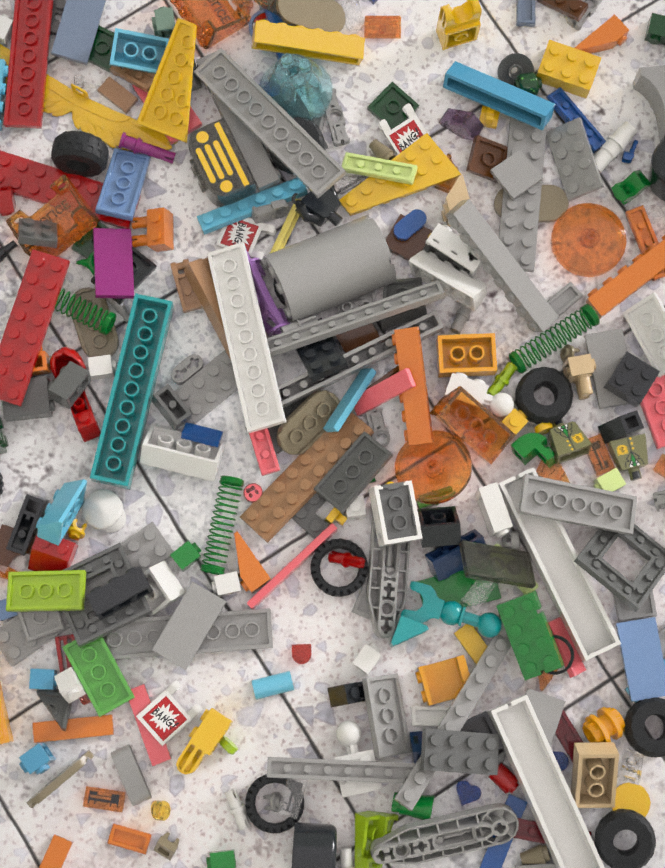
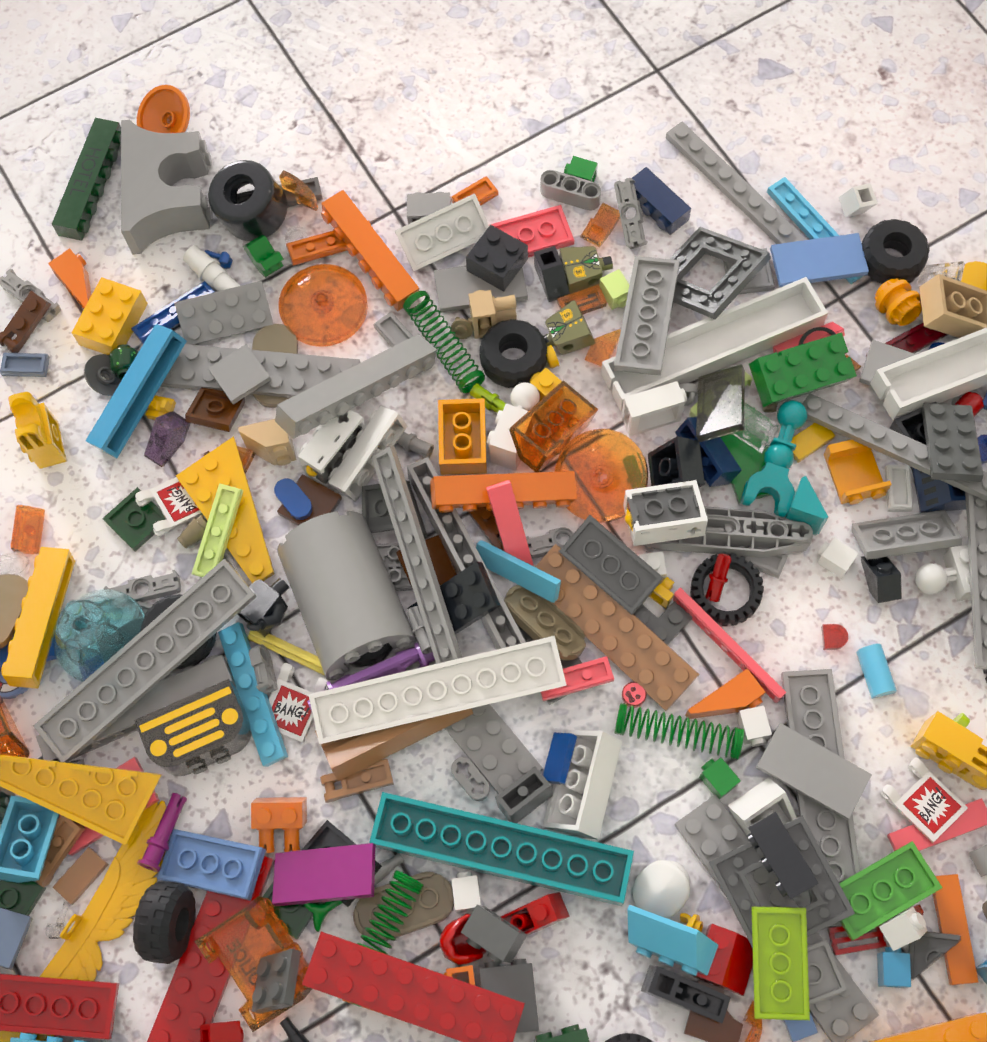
camera: 80 degrees left, 10 degrees down
(533, 445) = (573, 368): green brick -> none

